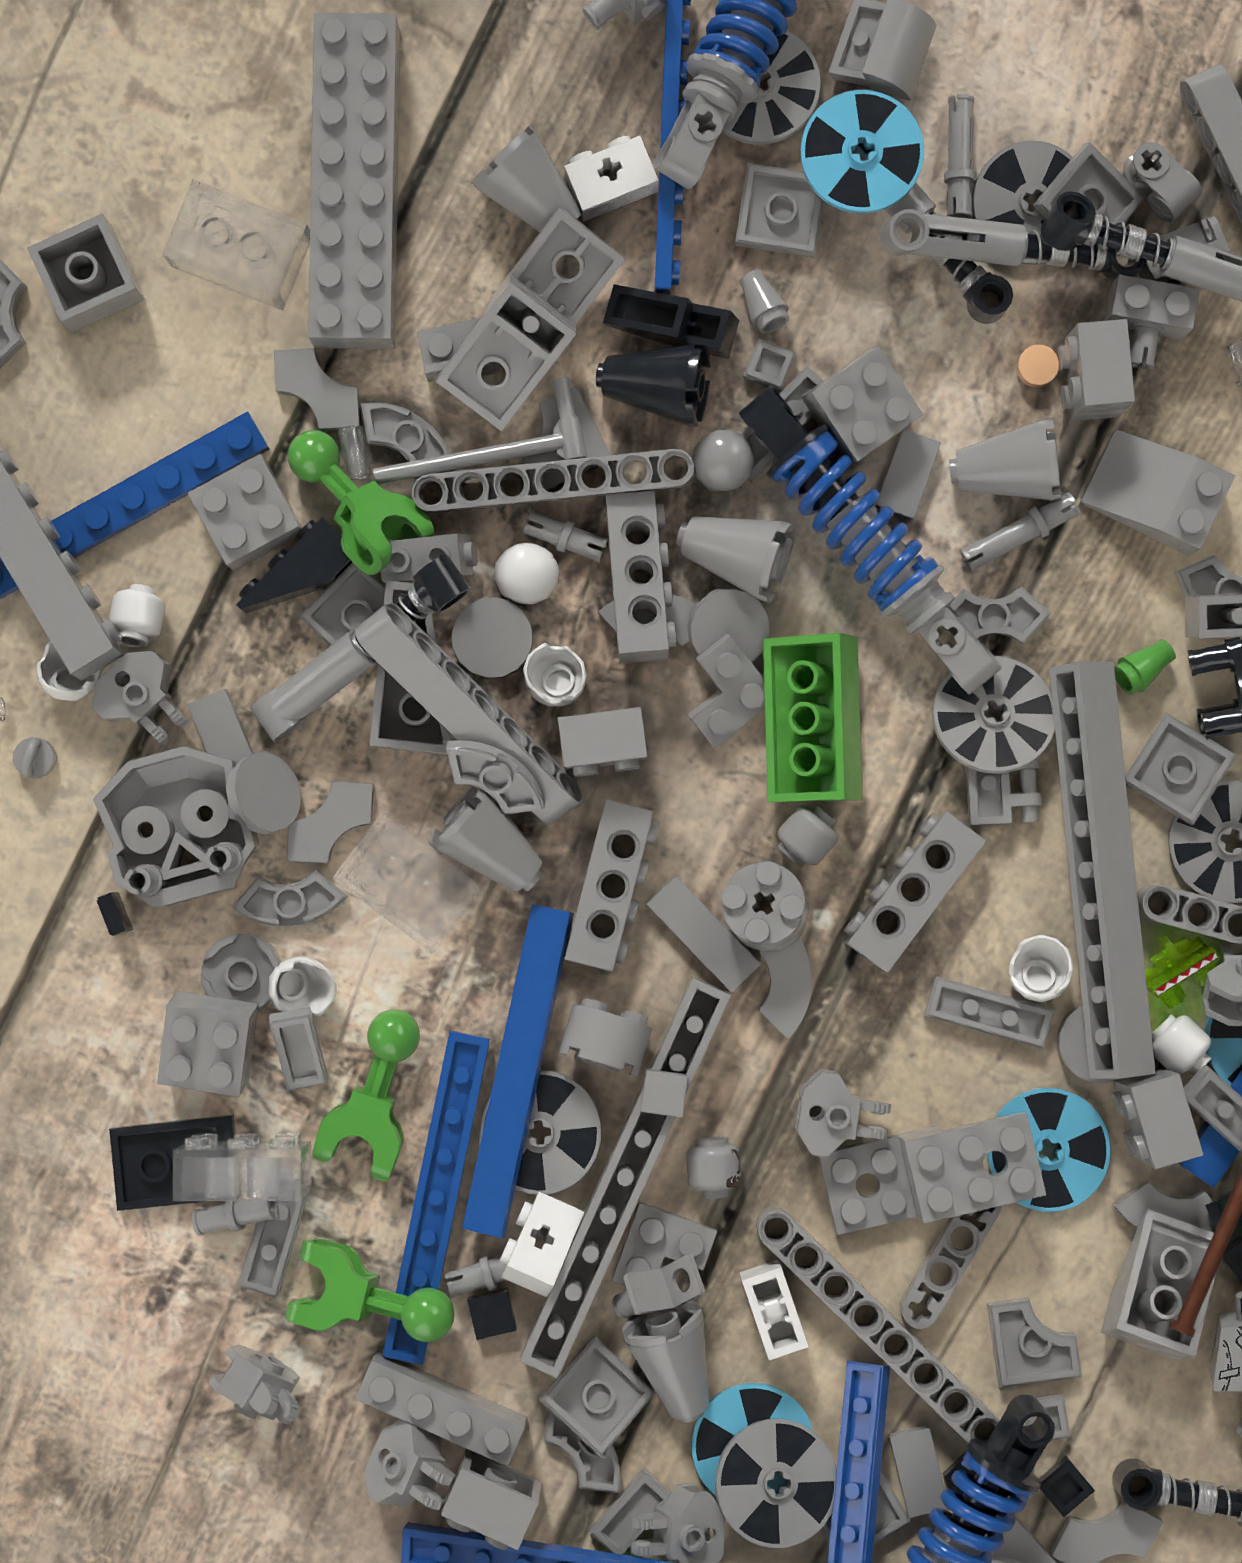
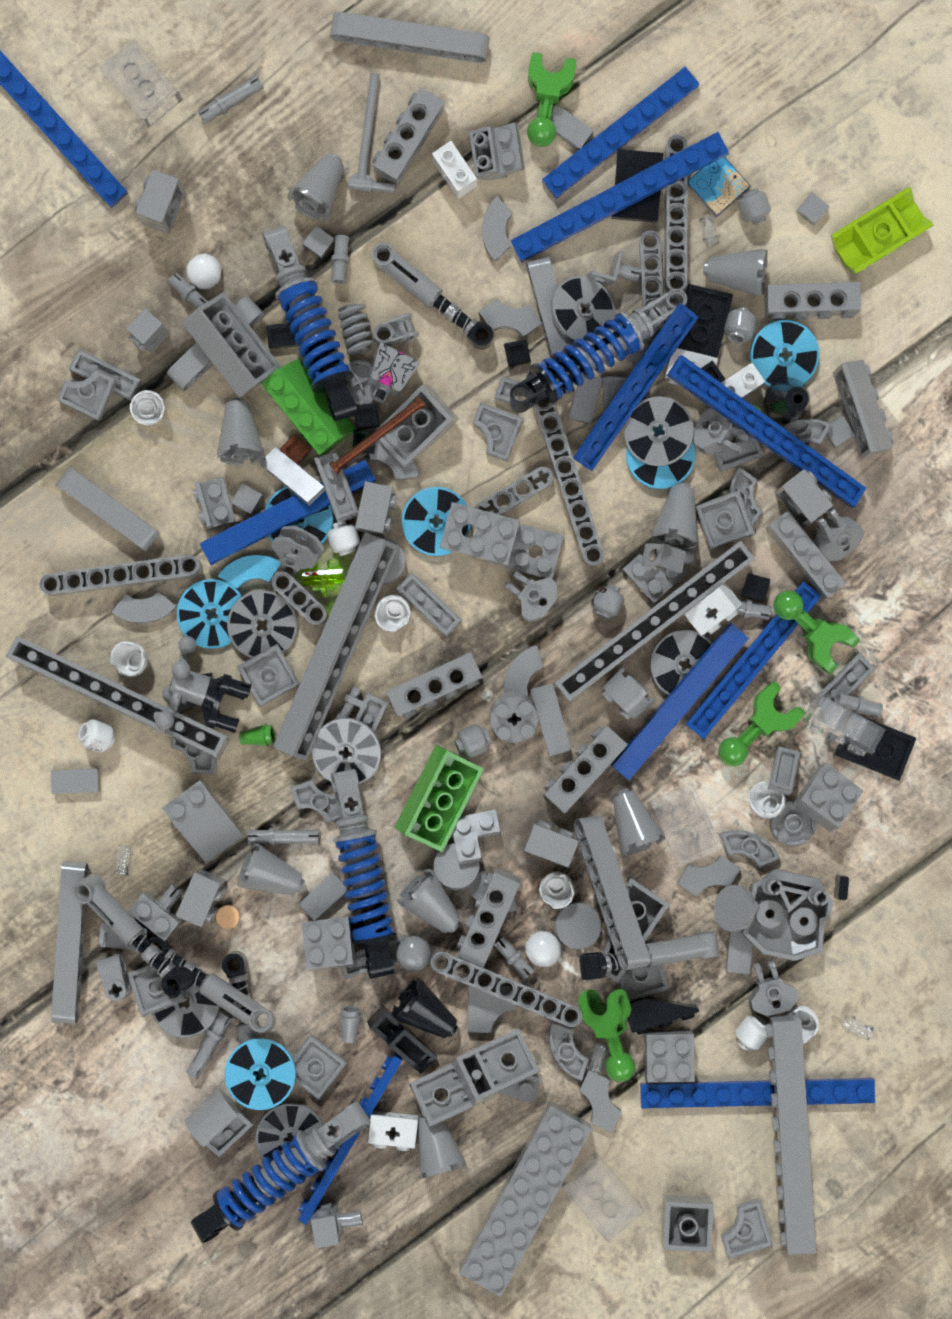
camera: 150 degrees left, 0 degrees up
(34, 757) = (841, 988): light grey tile -> none
(258, 1385) = (890, 615): light grey hinge -> none
(415, 553) = (594, 988): light grey bracket -> none
(496, 774) = (613, 855): light grey tile -> none
(566, 440) = (488, 1006): light grey bar -> none
(664, 1093) = (614, 652): light grey tile -> none
(769, 365) = (363, 989): light grey tile -> none
(773, 1309) = (615, 516): white brick -> none

